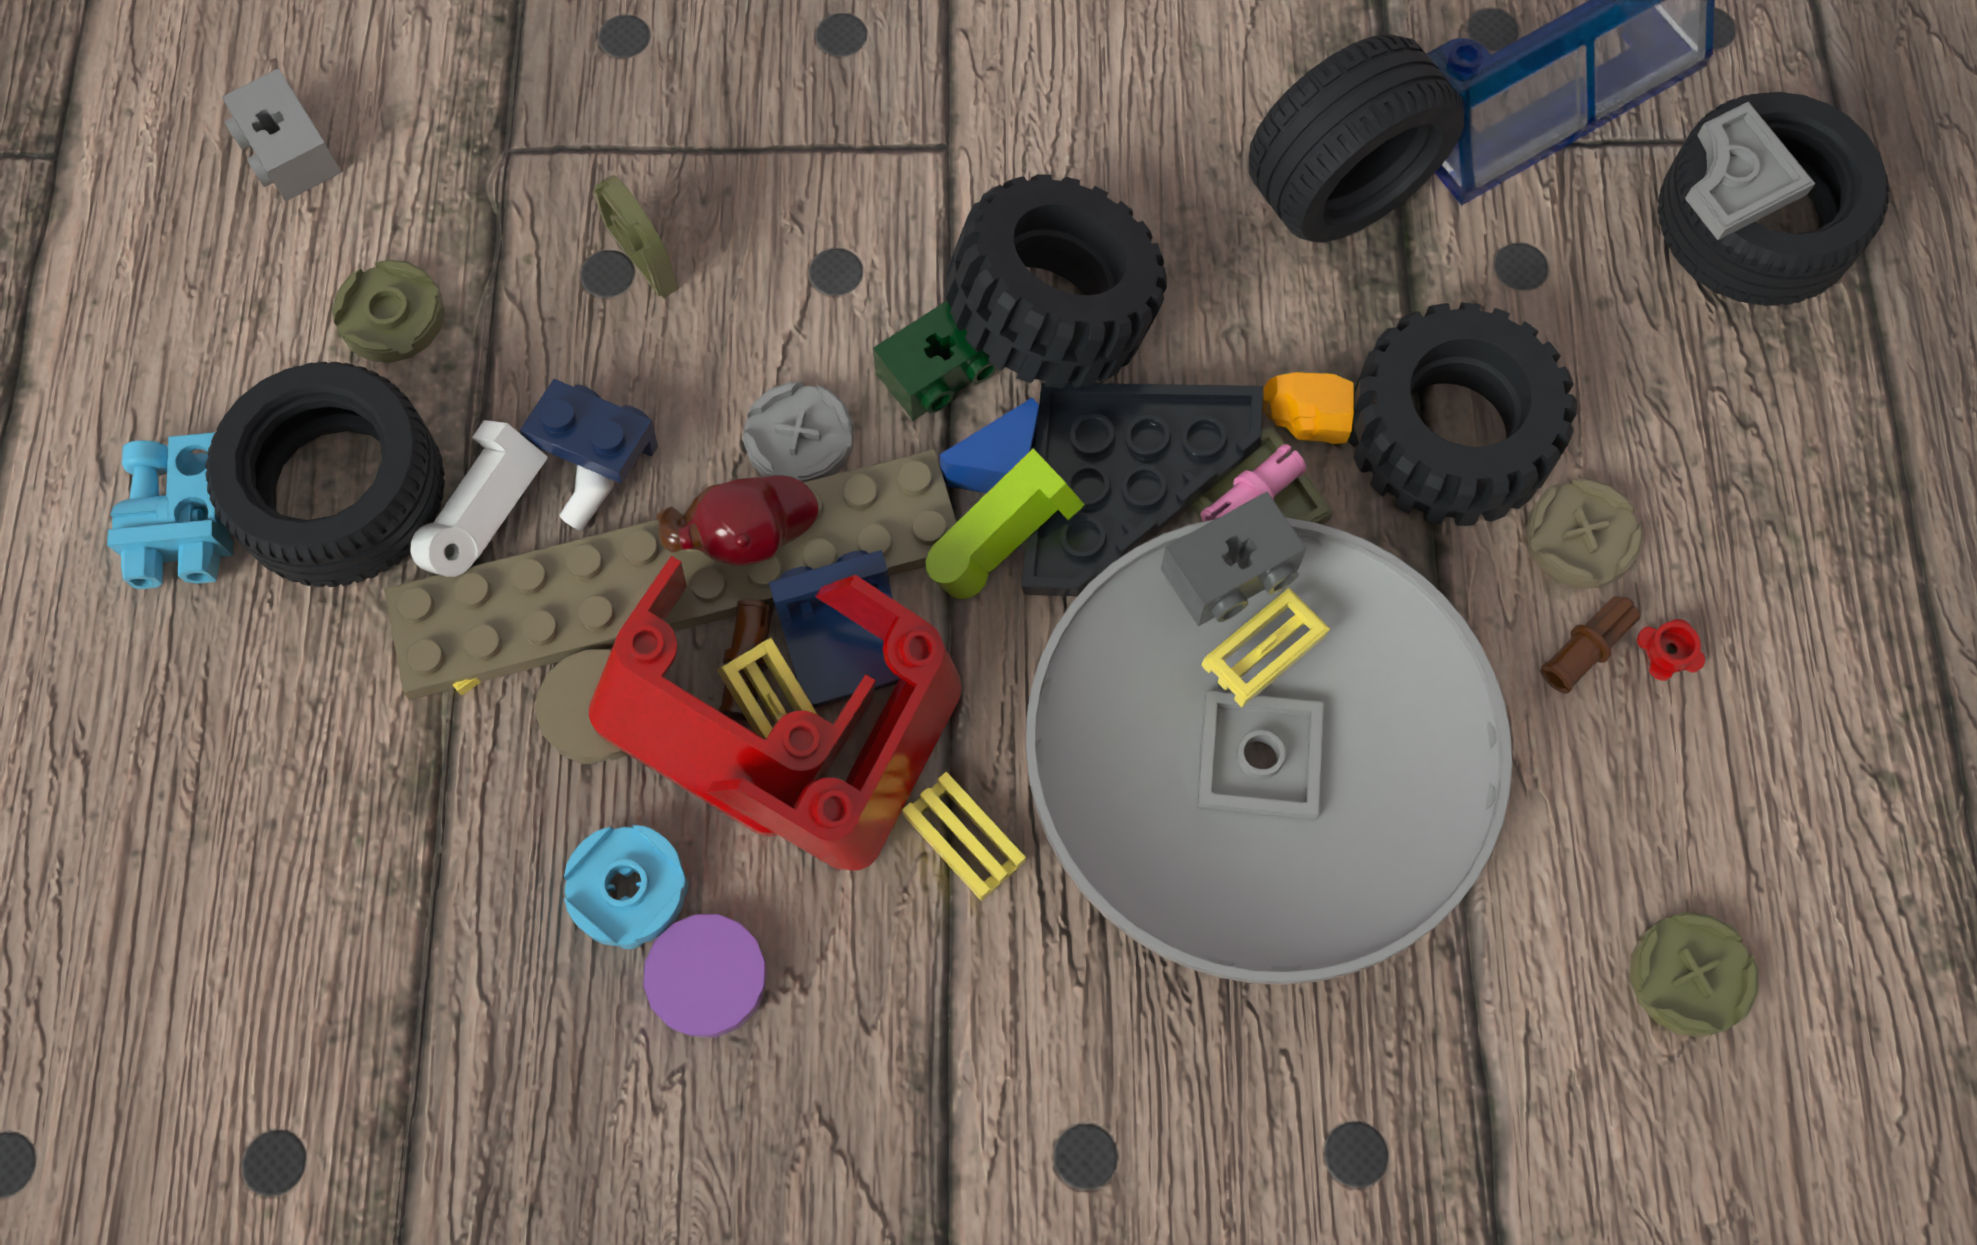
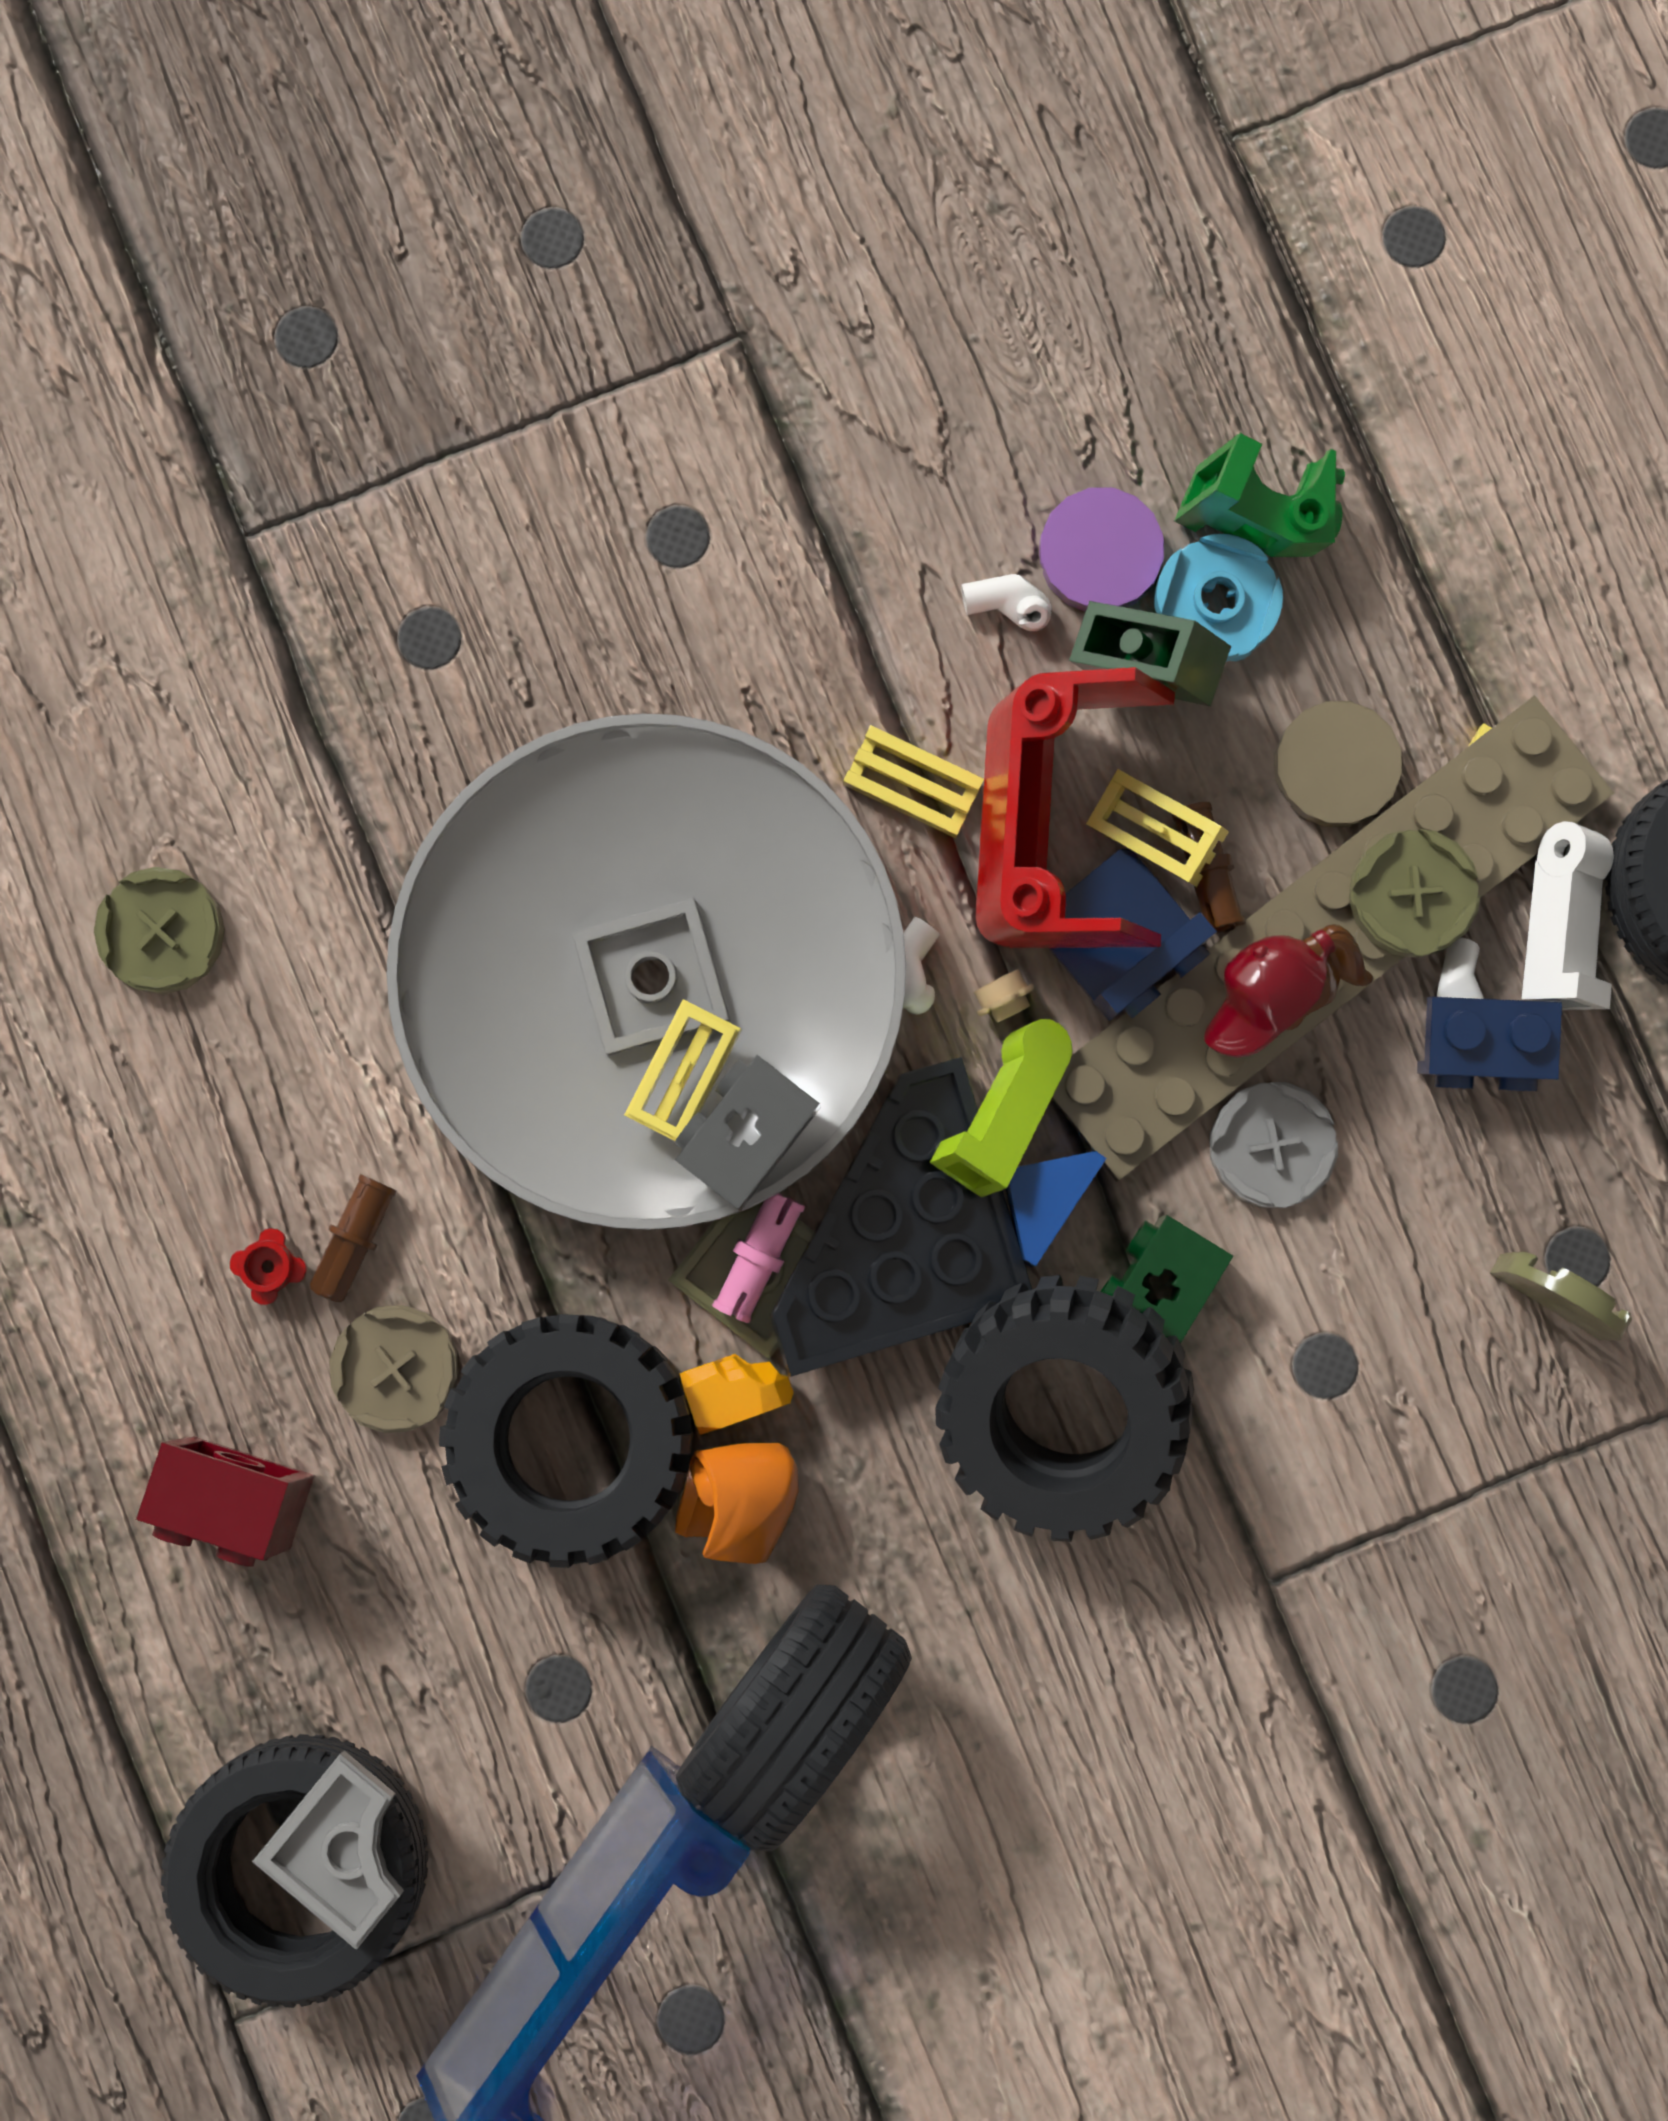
camera: 160 degrees right, 15 degrees up
(567, 961) = (1235, 501): none -> green tile
(589, 565) = (1414, 893): none -> olive tile
(691, 739) = (1285, 754): red windscreen -> none
(711, 842) = (1162, 646): none -> dark green brick
(803, 964) = (1012, 597): none -> white arm
(964, 625) = (1004, 996): none -> tan plate
(1016, 699) = (917, 942): none -> white arm
(1328, 322) = (738, 1500): none -> orange piece
(1762, 467) = (224, 1500): none -> dark red brick

